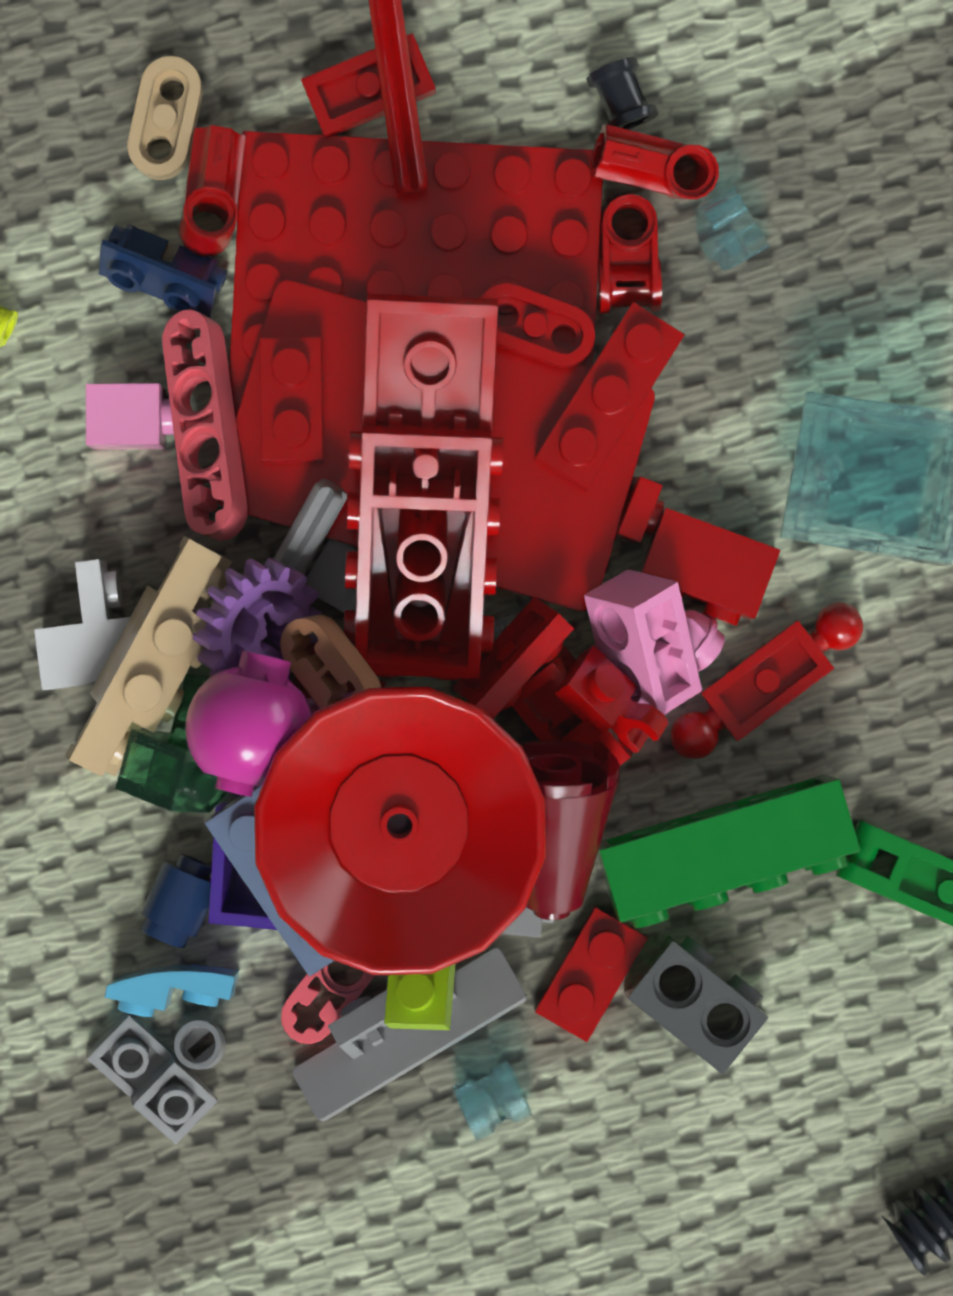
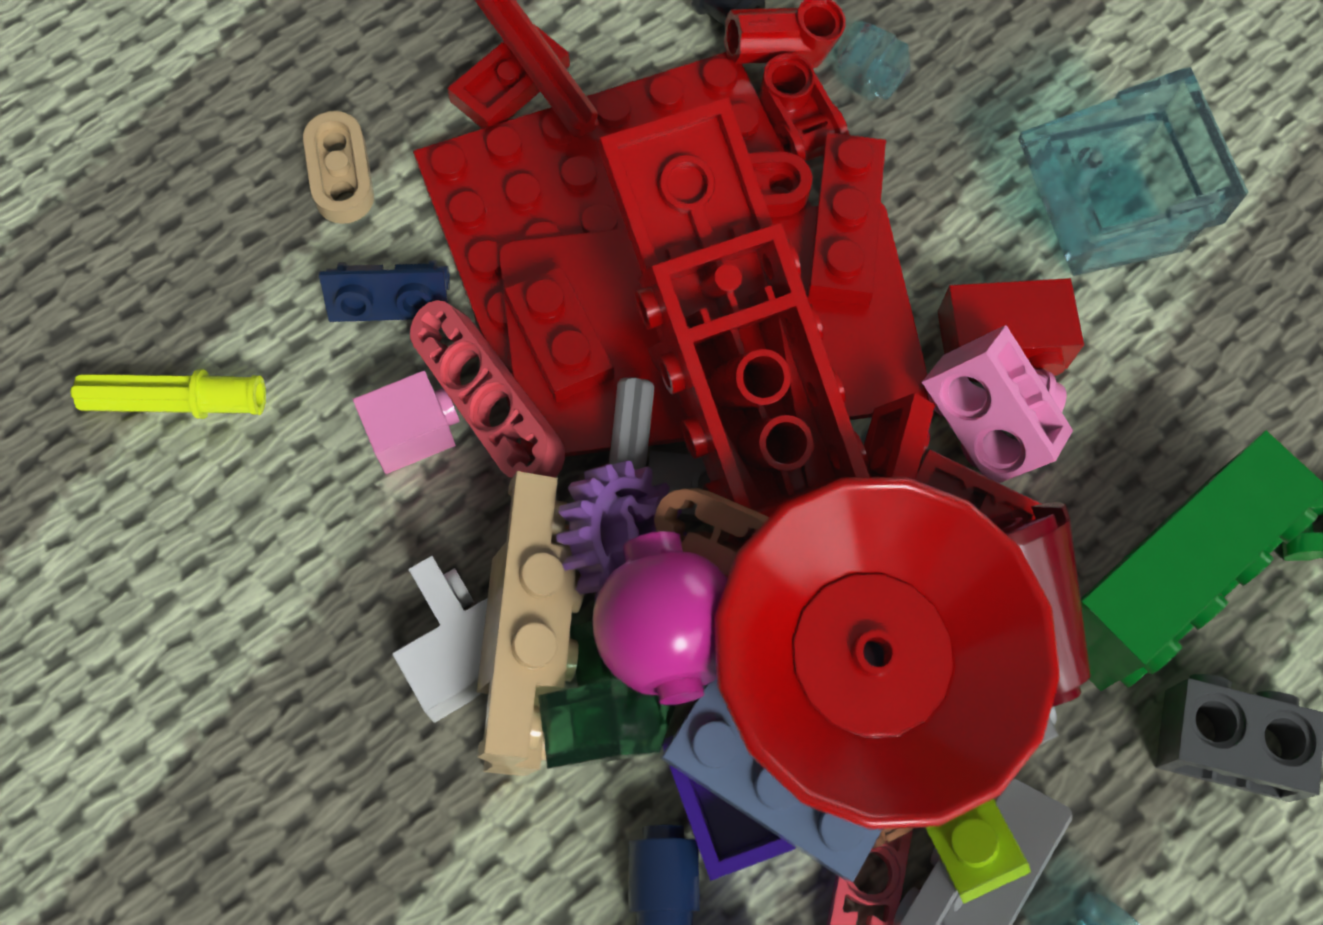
camera: 30 degrees left, 20 degrees down
(212, 188) = (406, 204): red piece -> none
(590, 974) = (1116, 764): red plate -> none
(602, 701) = (995, 461): red plate -> none
(641, 510) = (926, 302): red plate -> none
(766, 680) = (1117, 409): red plate -> none

